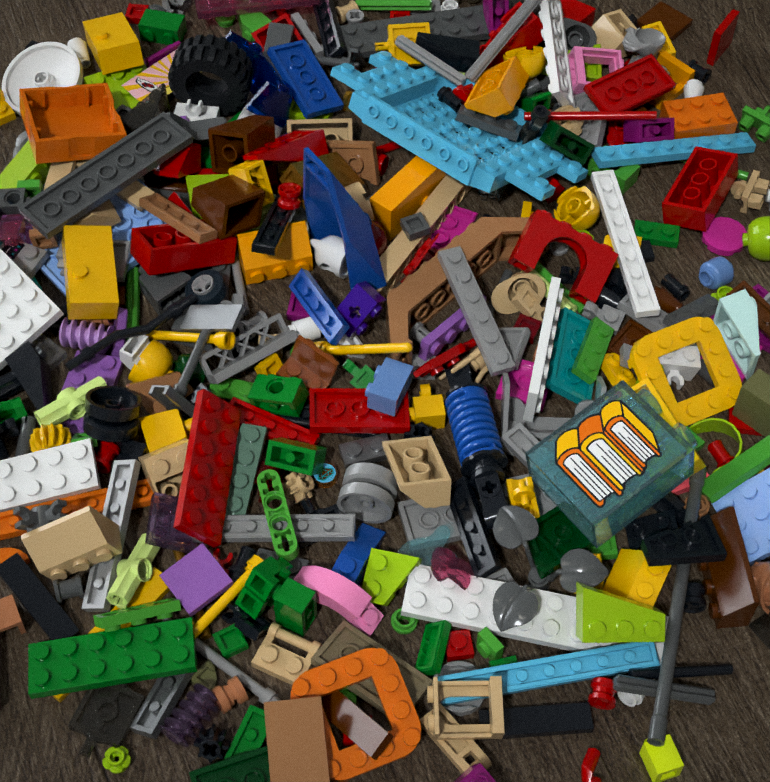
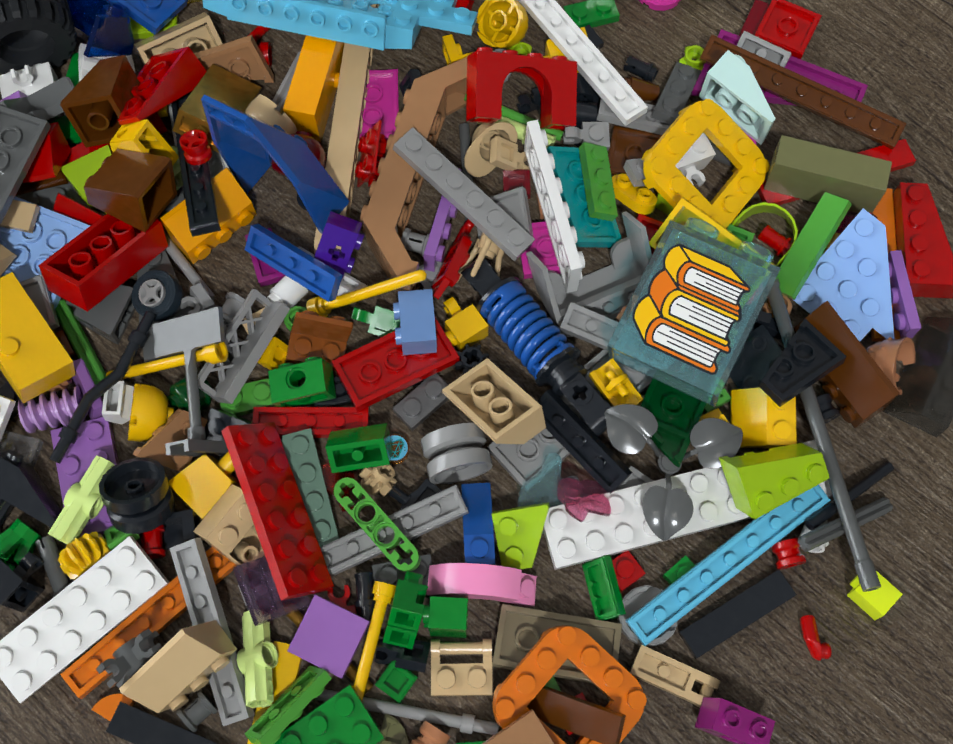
camera: 25 degrees left, 15 degrees up
(178, 218) = (82, 226): medium nougat tile -> none
(330, 255) = (272, 189): white piece -> none
(403, 629) = (555, 581): bright green plate -> none
(415, 226) = (345, 119): dark grey plate -> none
(447, 689) = (709, 646): tan panel -> none
(489, 645) = (656, 558): bright green plate -> none
(716, 273) = (675, 35): medium blue head -> none

